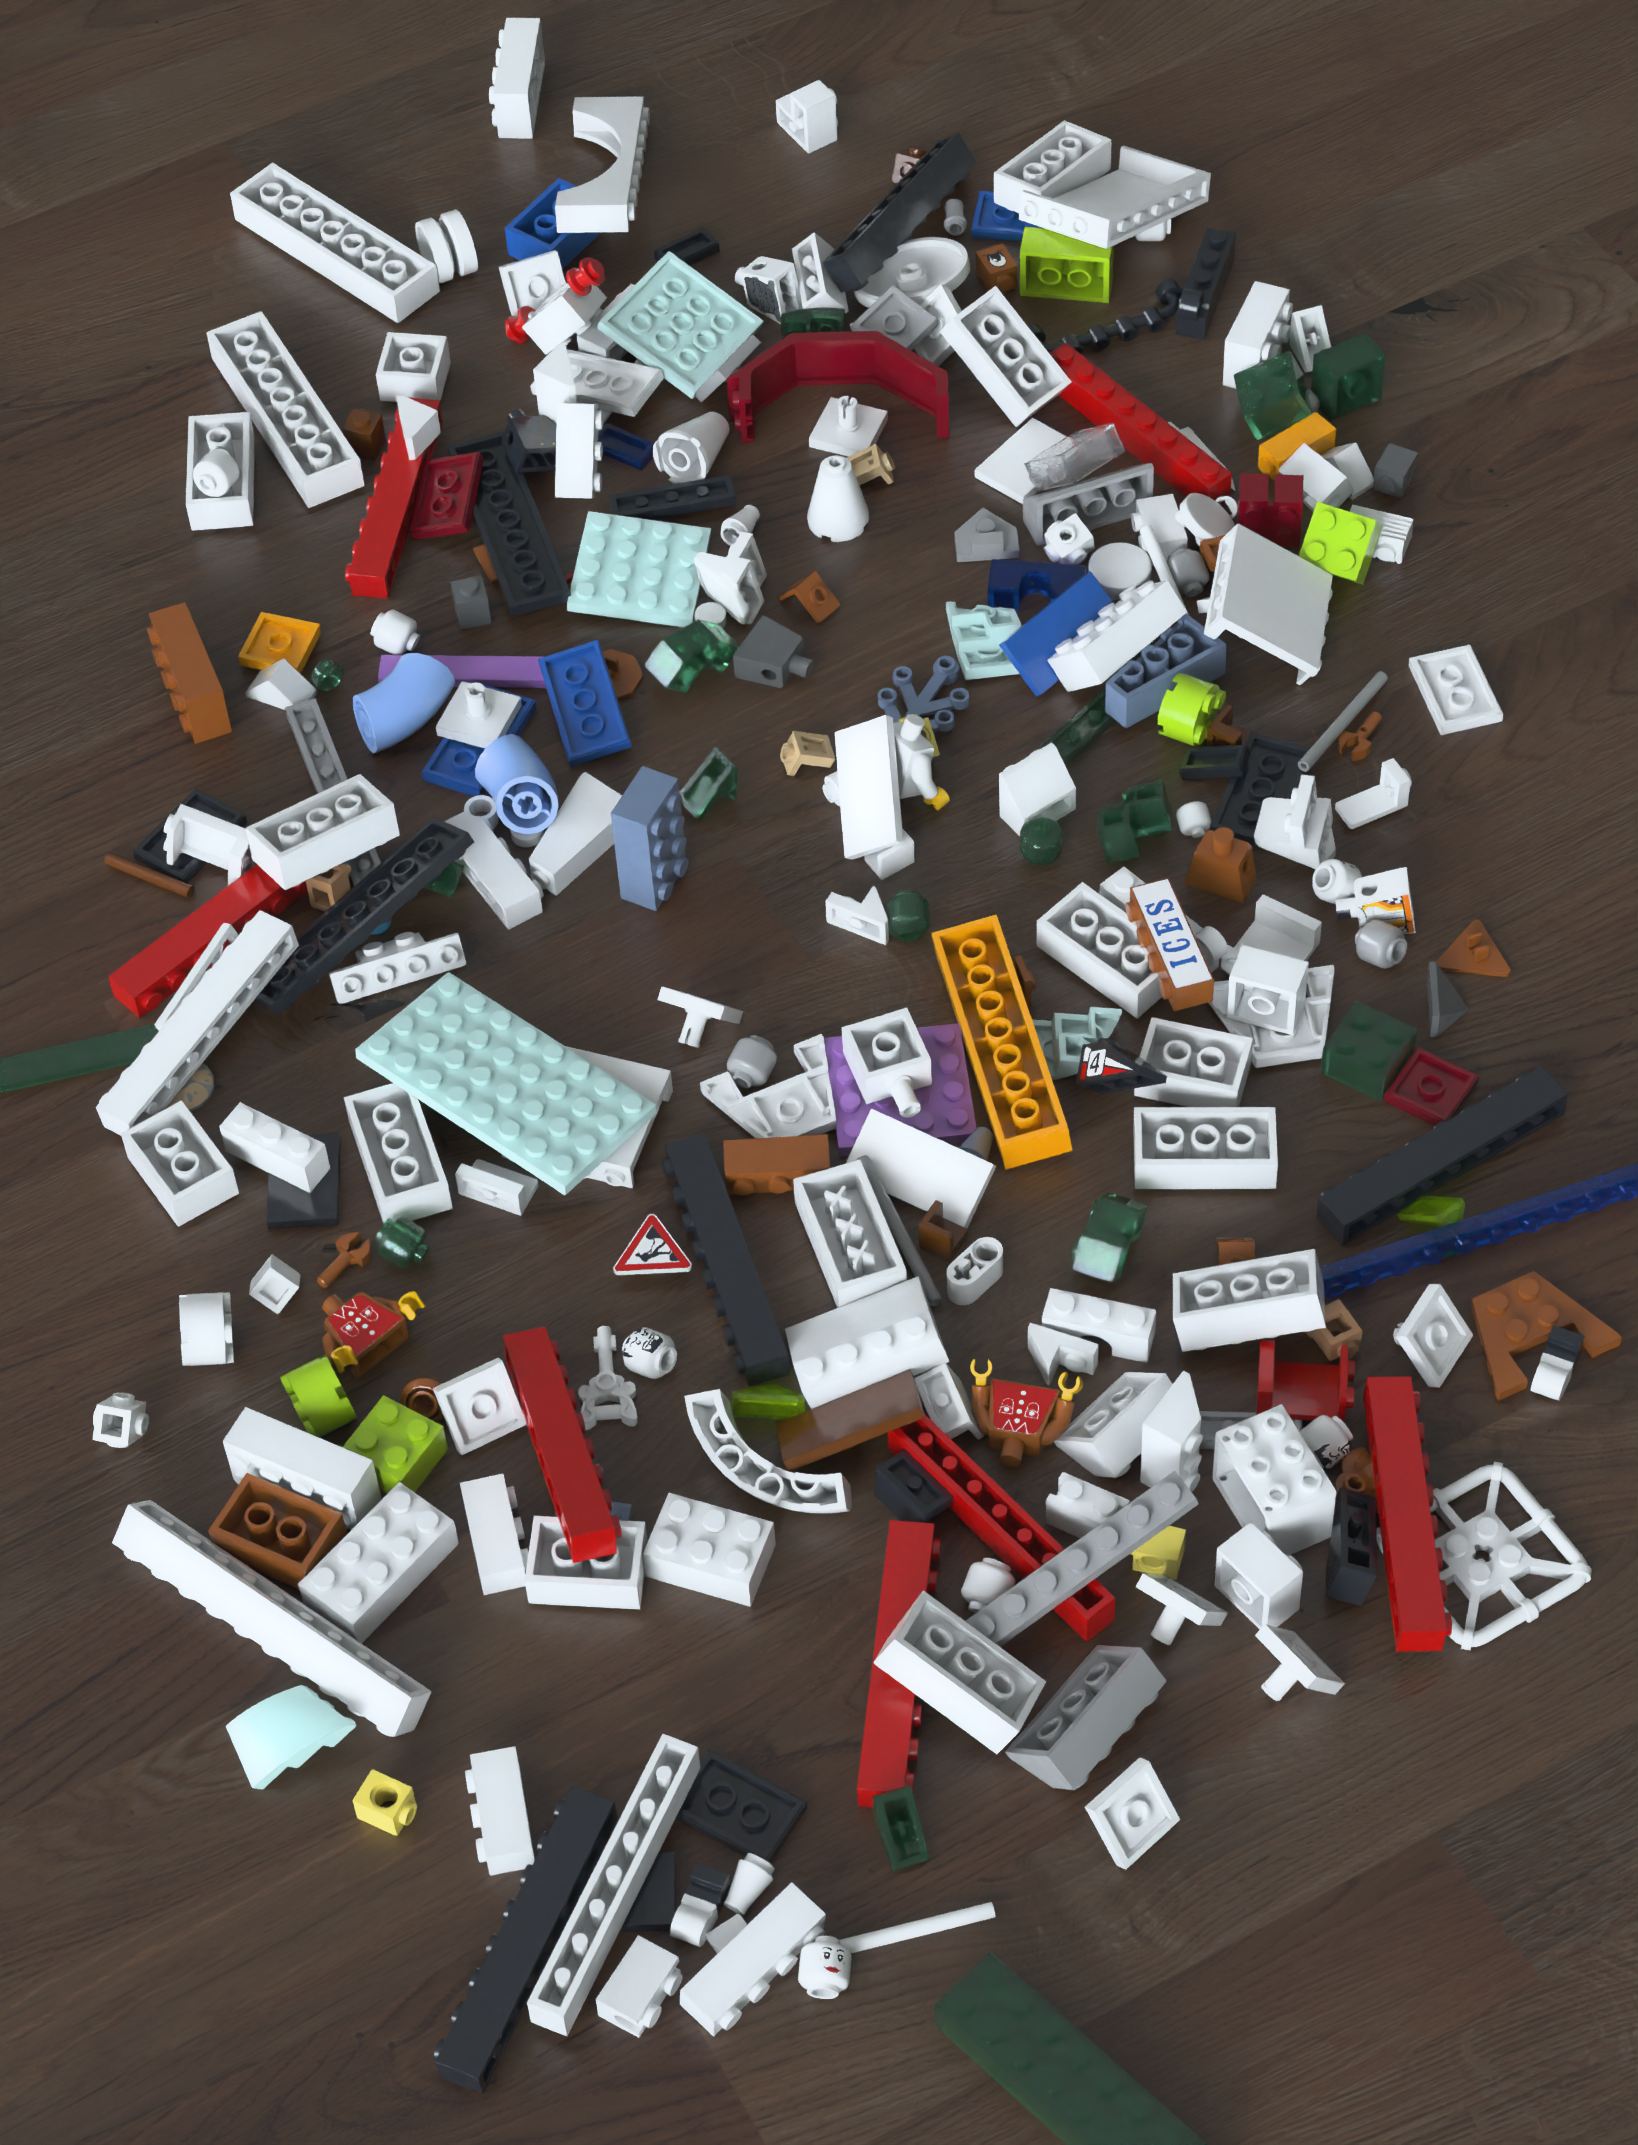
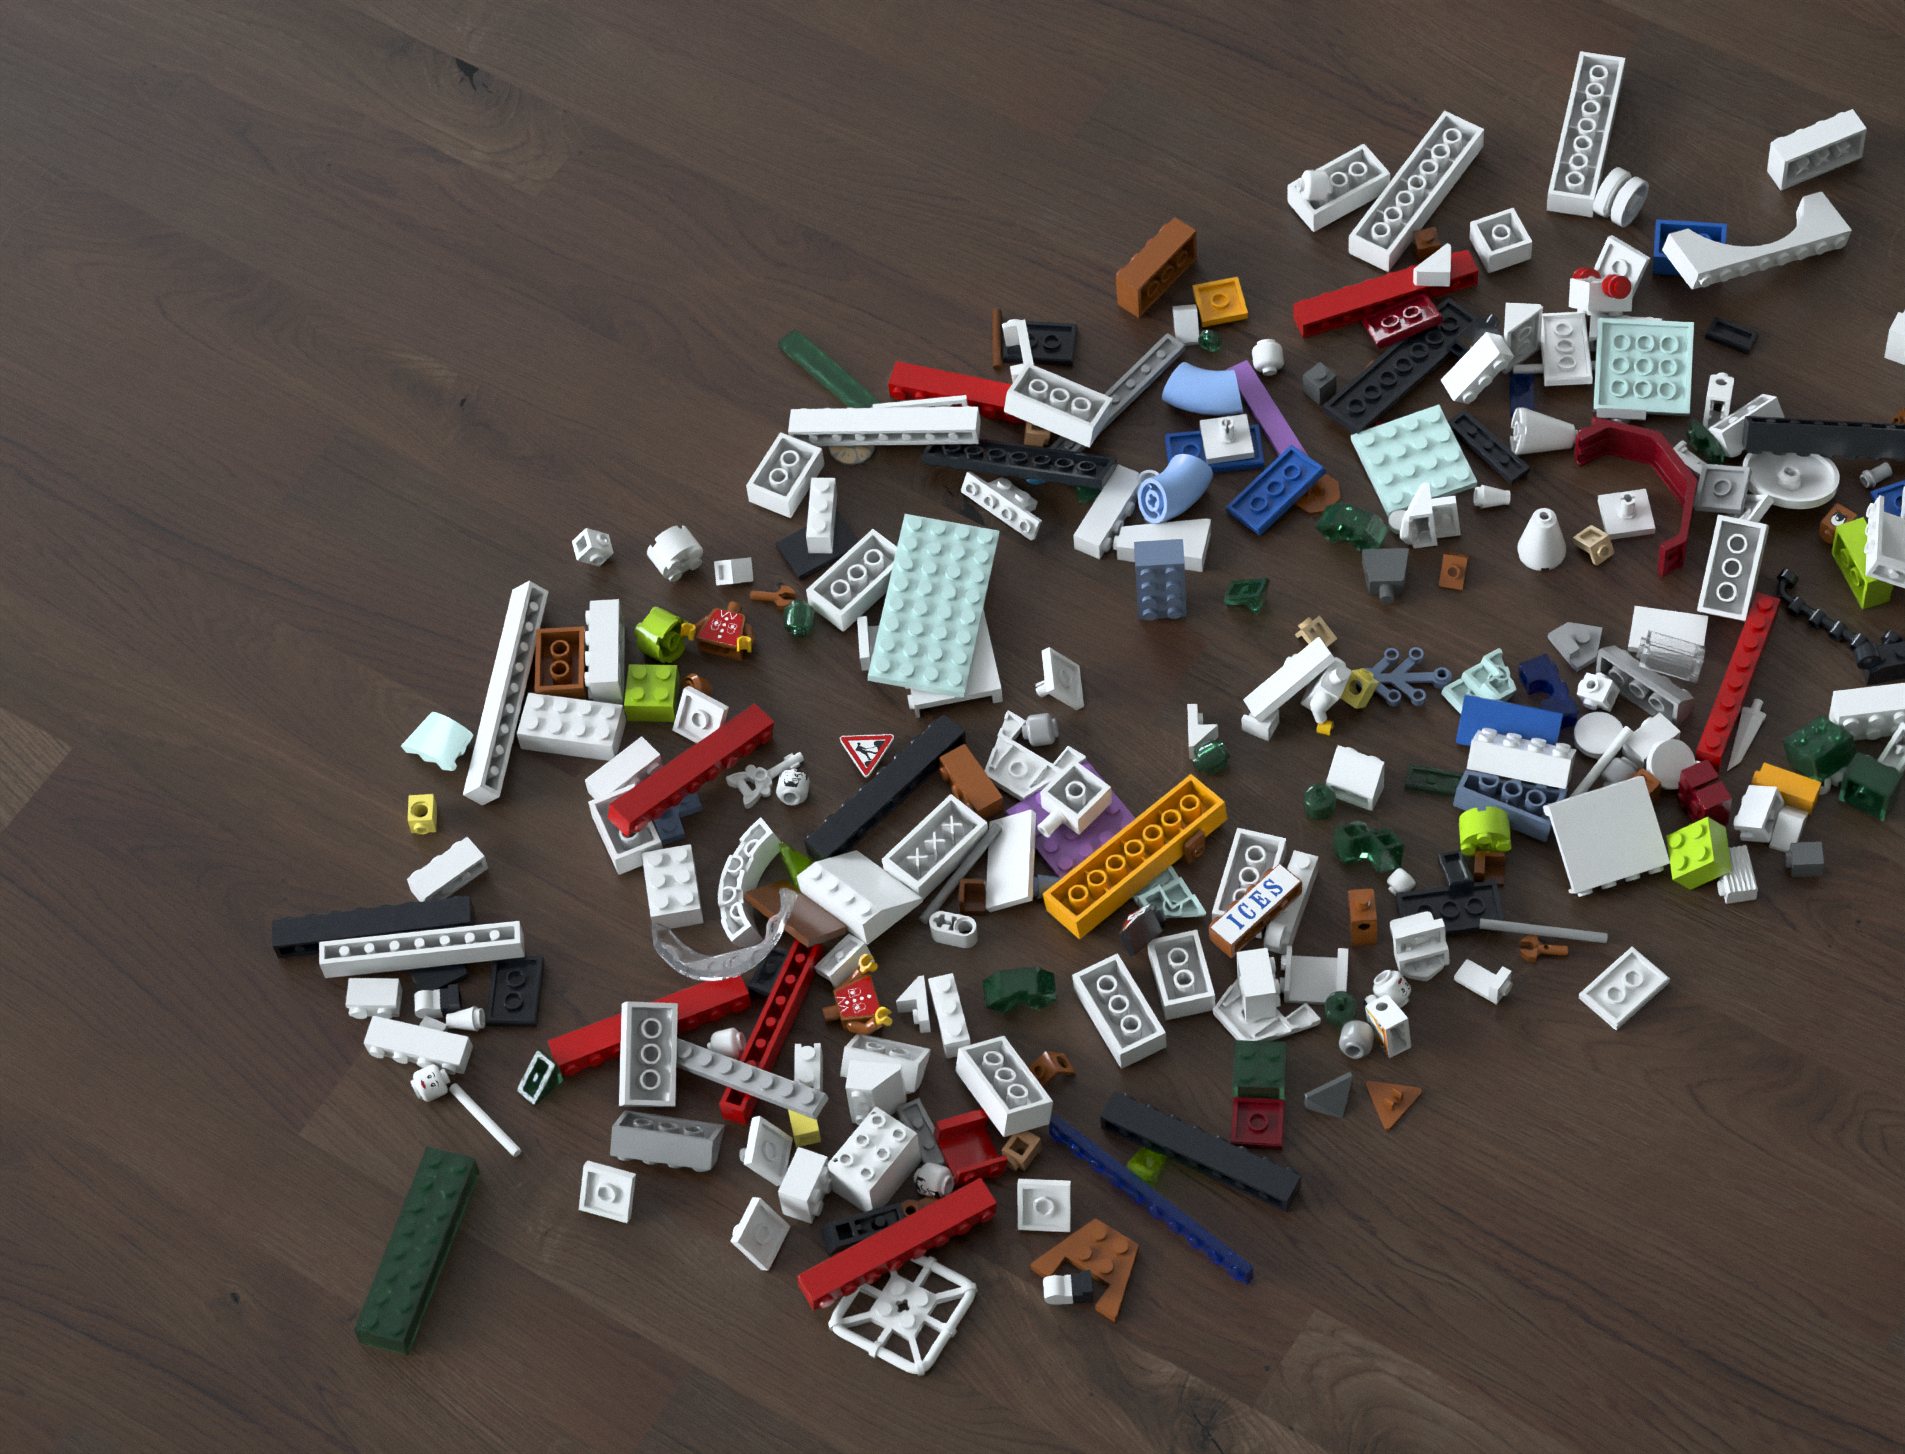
camera: 65 degrees right, 5 degrees up
(883, 1519) = (725, 965): none -> clear windscreen
(1335, 938) = (1340, 1001): none -> clear green head

